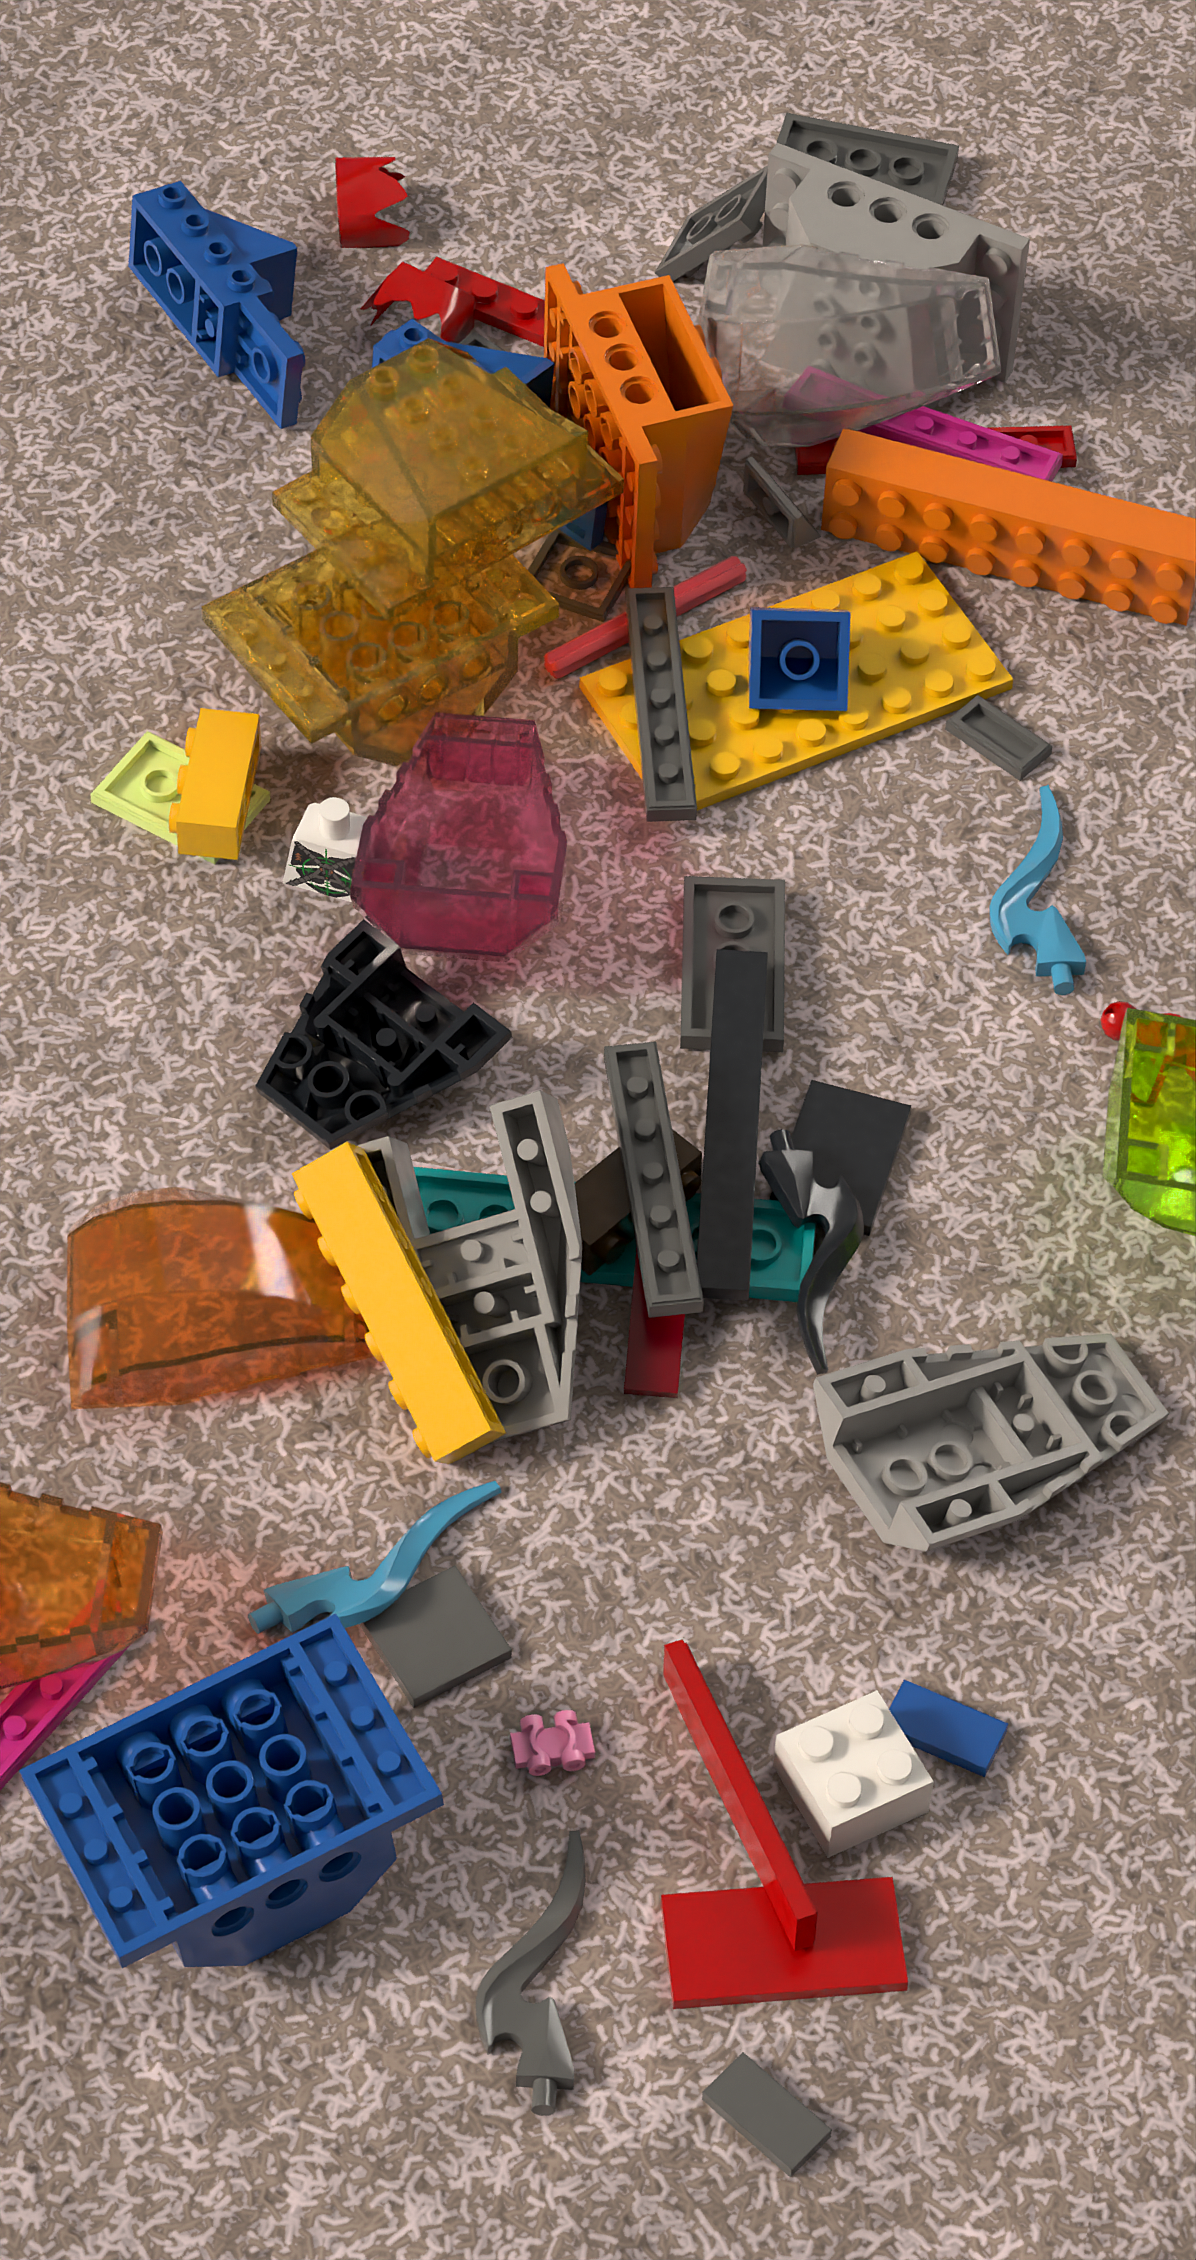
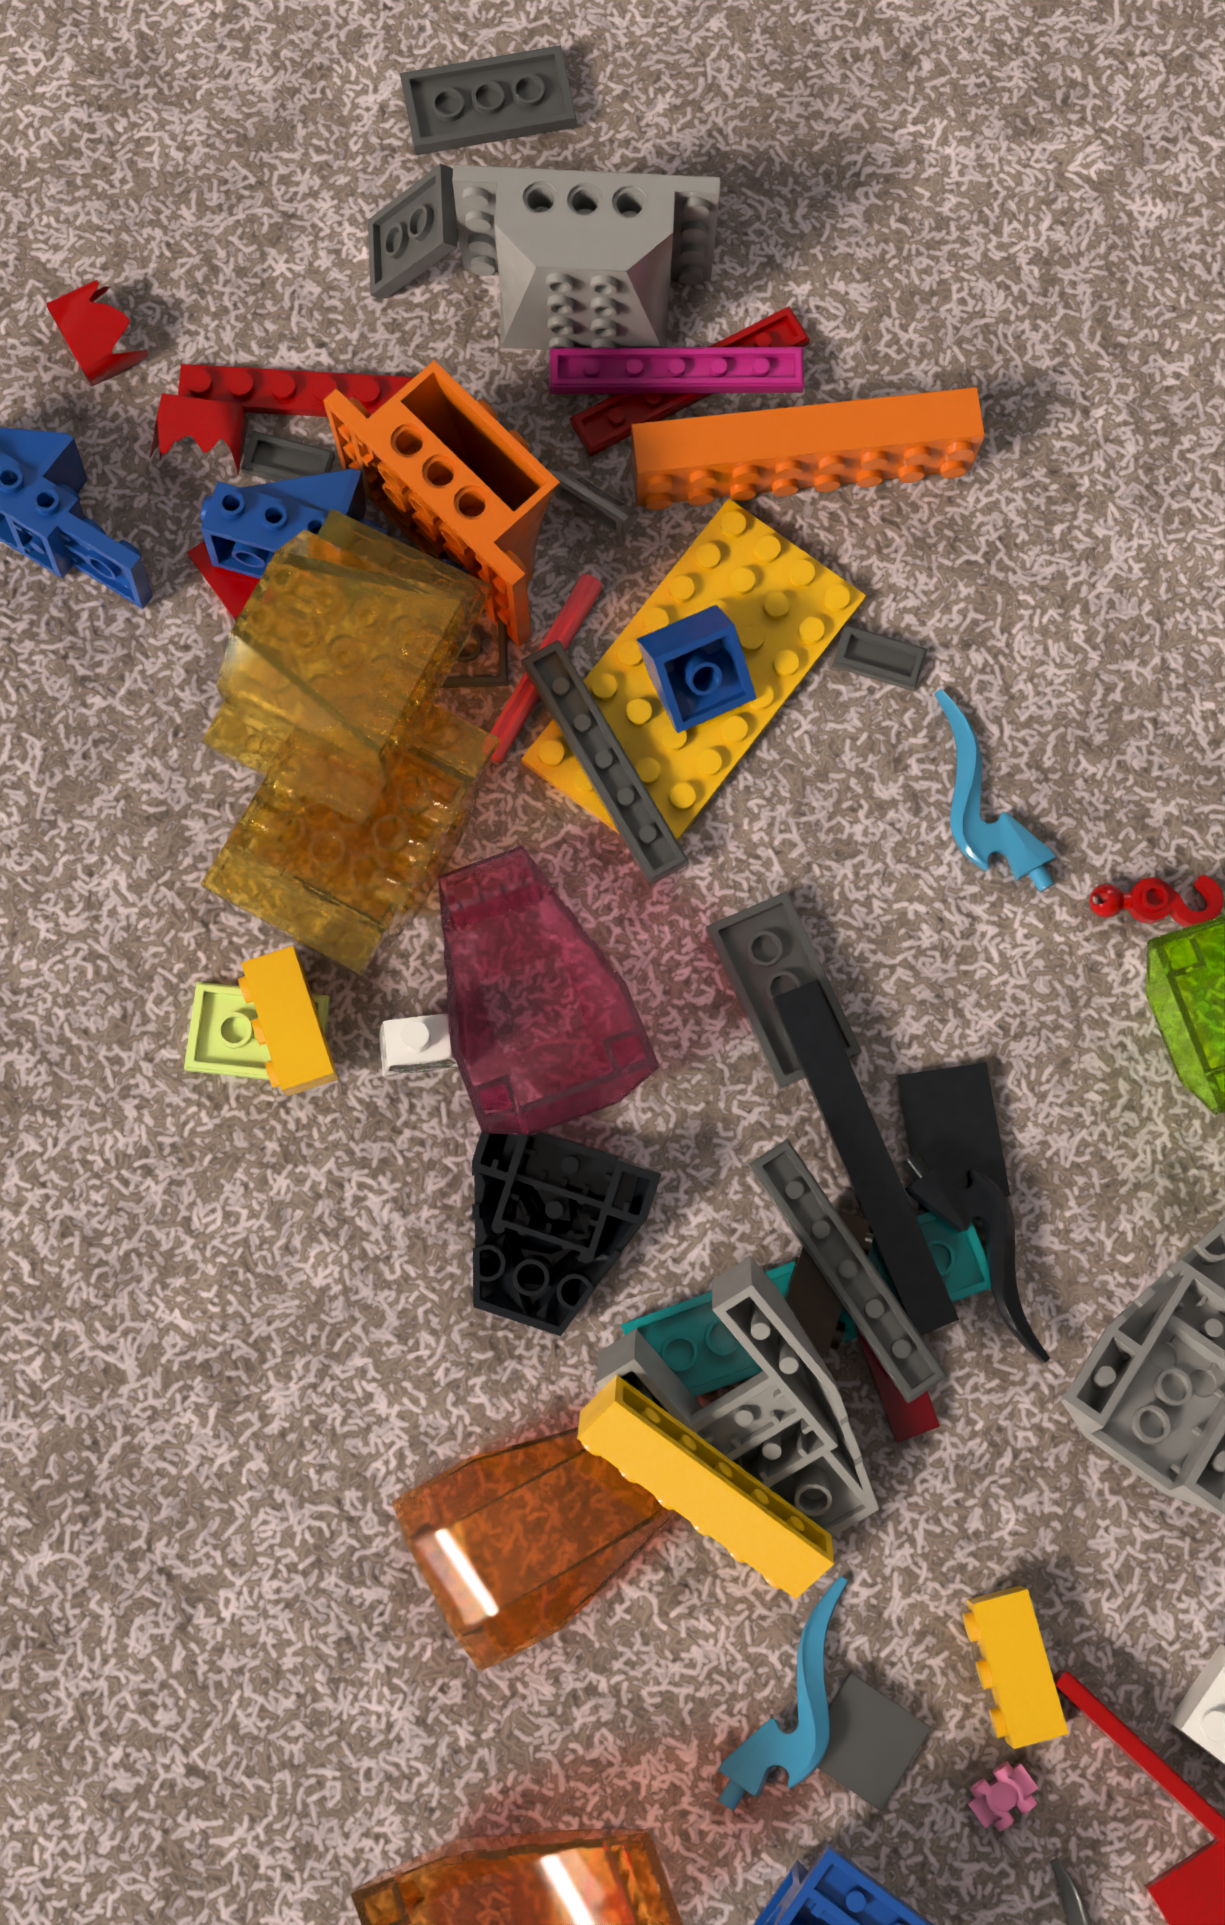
camera: 25 degrees left, 25 degrees up
(631, 1628) = (1015, 1667): none -> yellow brick
(839, 339) = (597, 348): clear windscreen -> none

